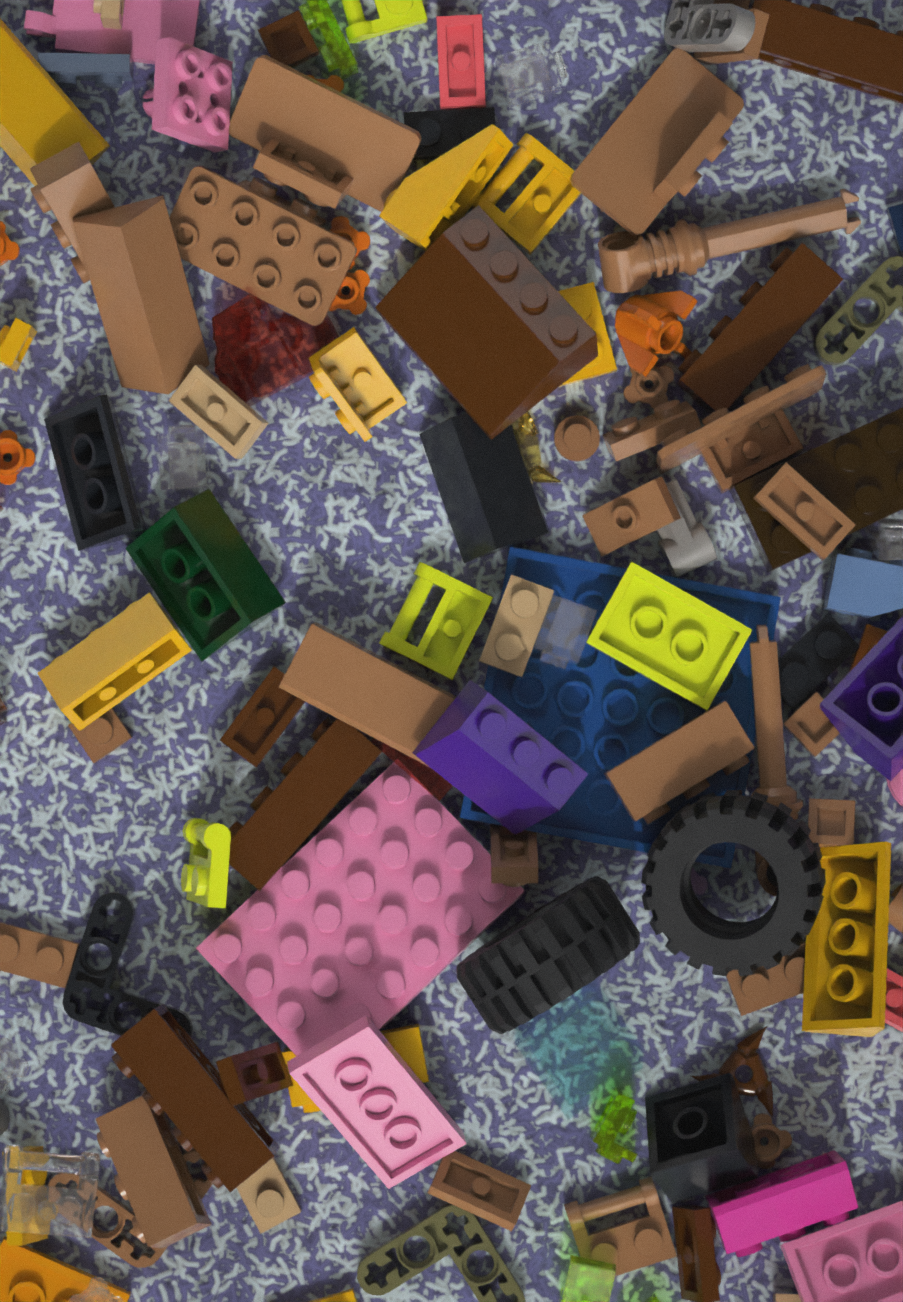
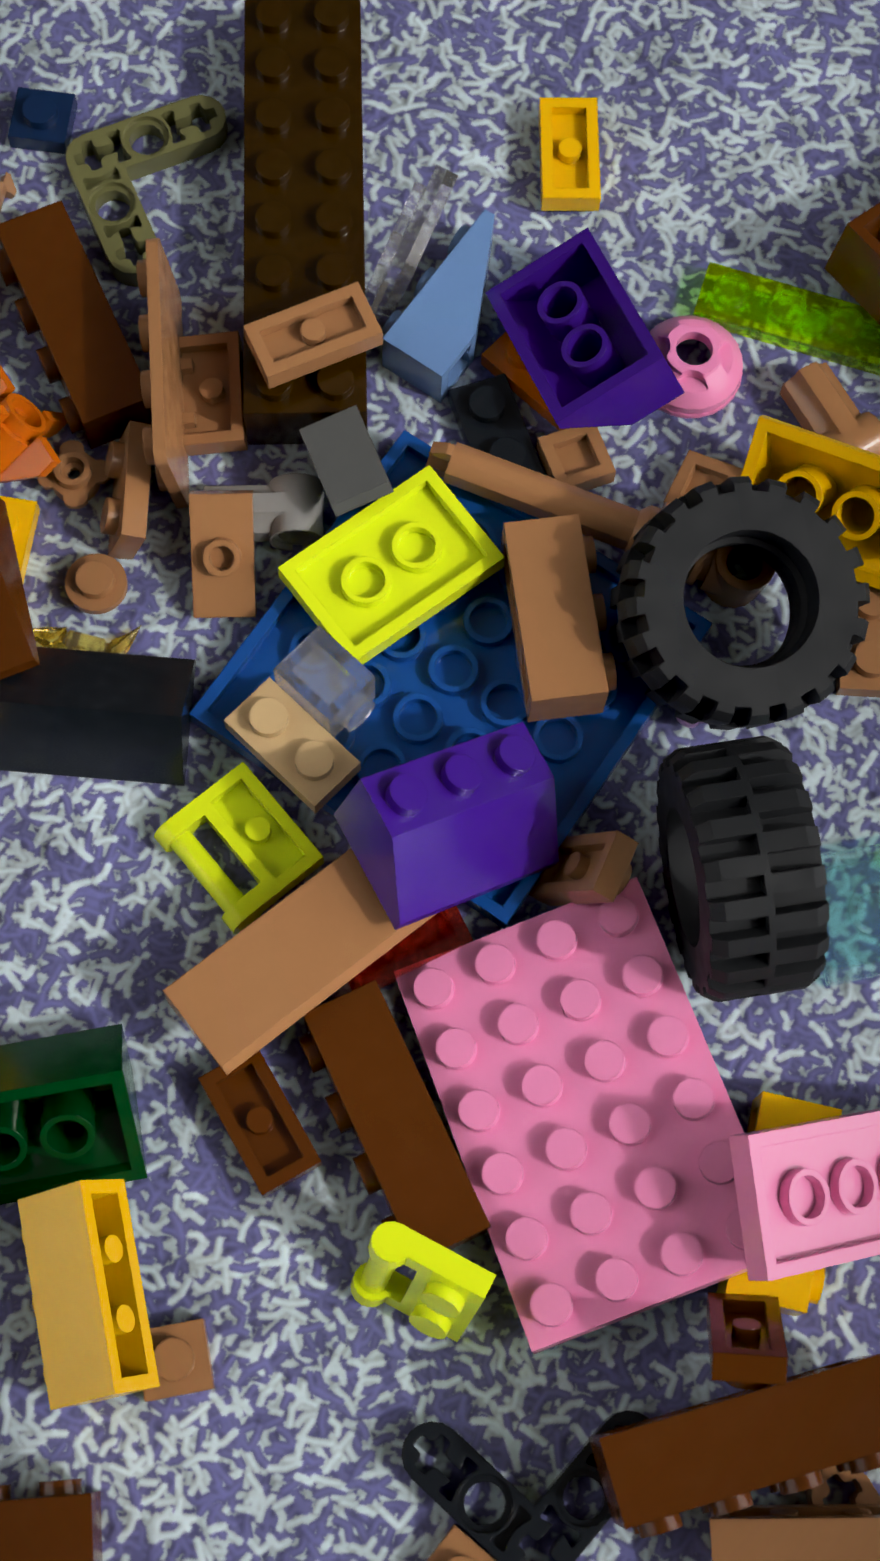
camera: 65 degrees left, 15 degrees down
(727, 575) = (346, 460): none -> dark grey slope

